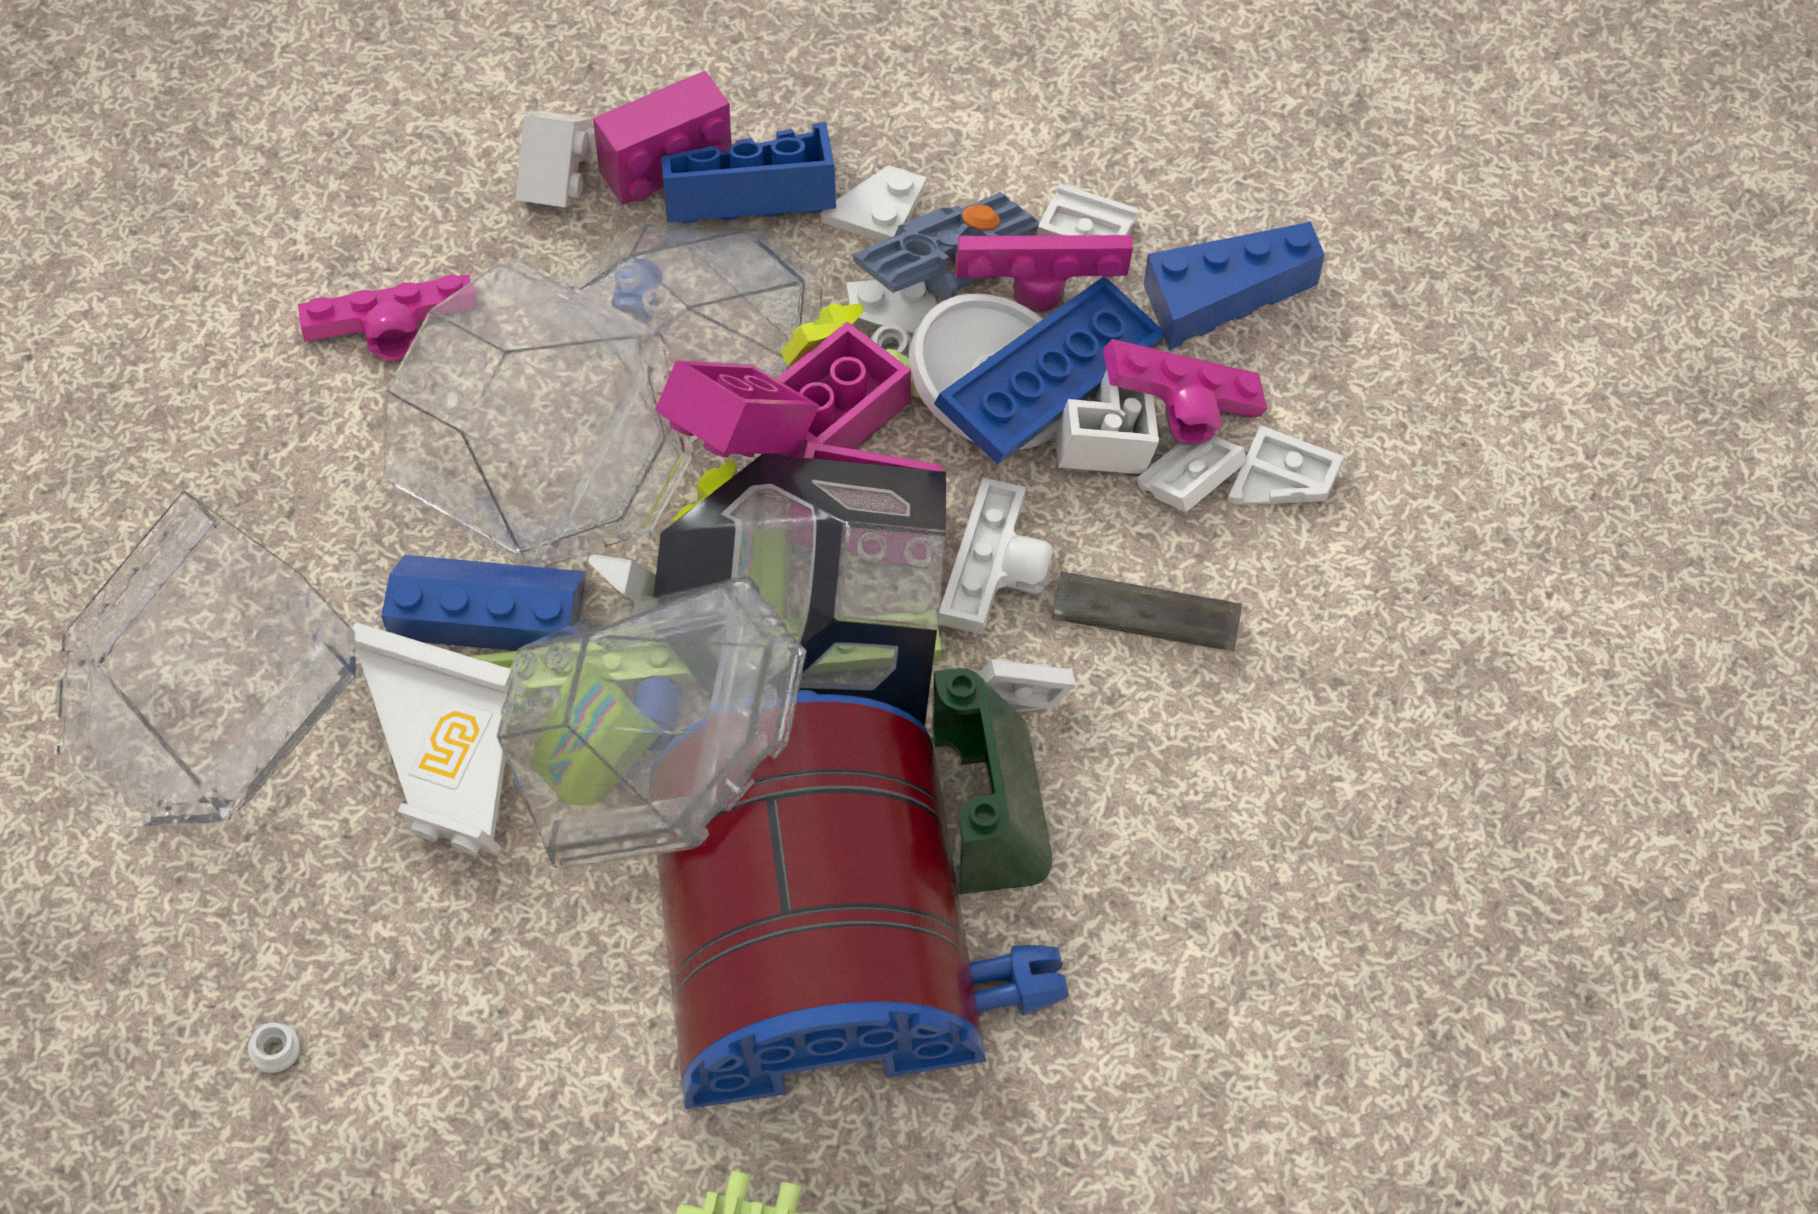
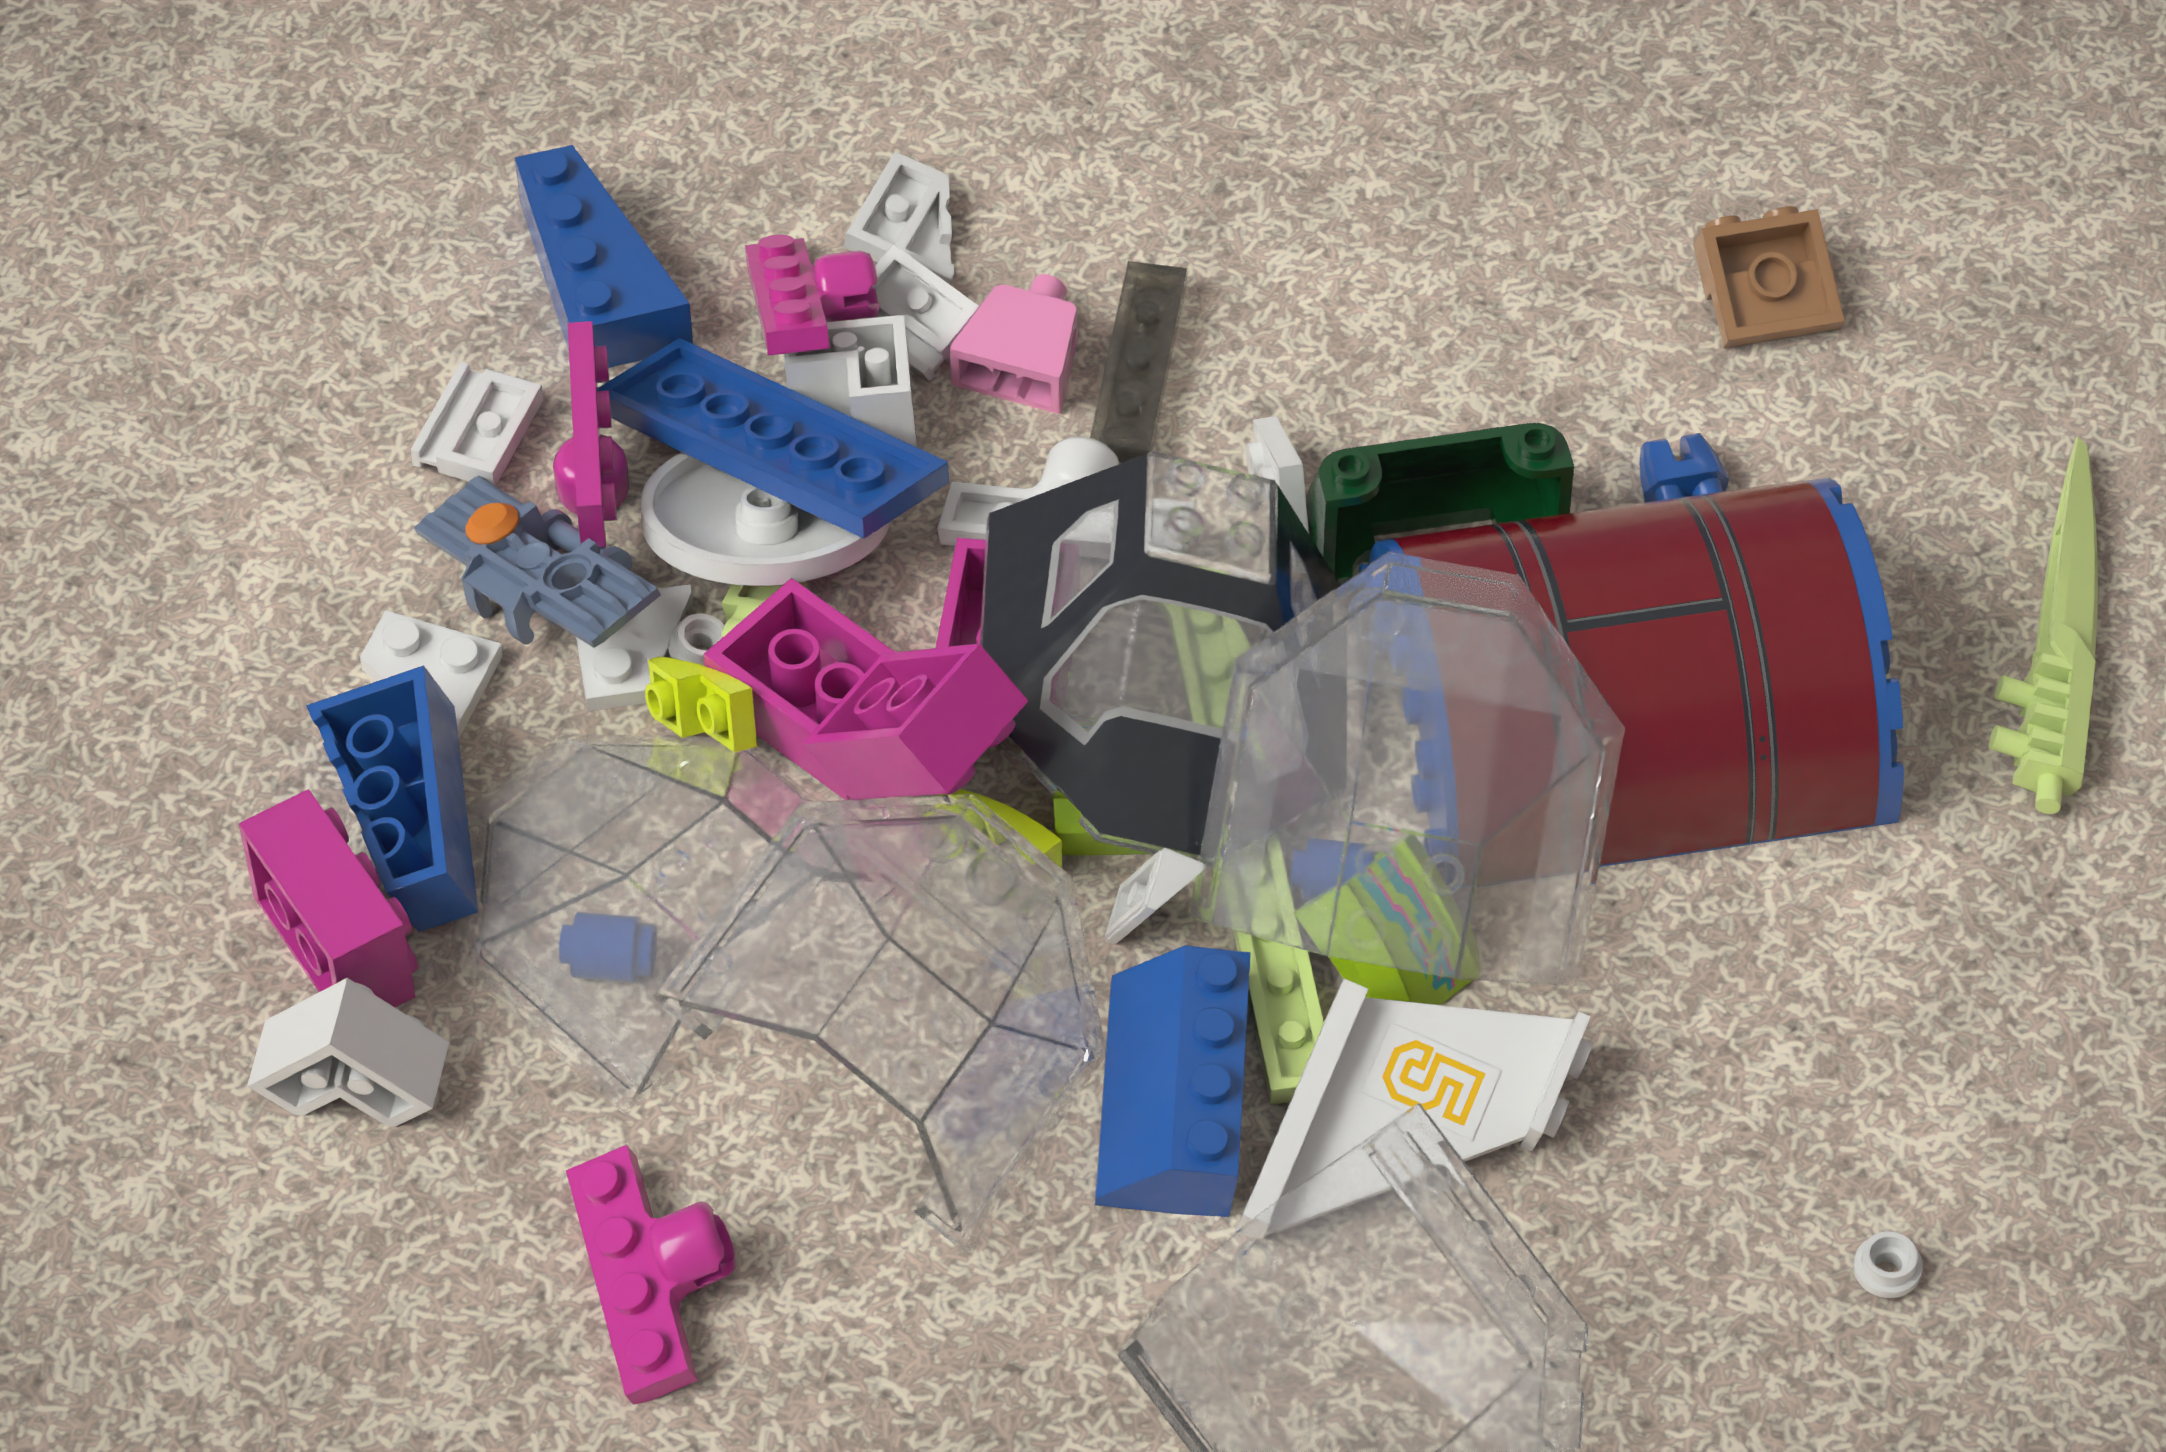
camera: 90 degrees left, 5 degrees down
(1160, 535) = (1019, 345): none -> bright pink torso
(1238, 1058) = (1768, 276): none -> medium nougat plate

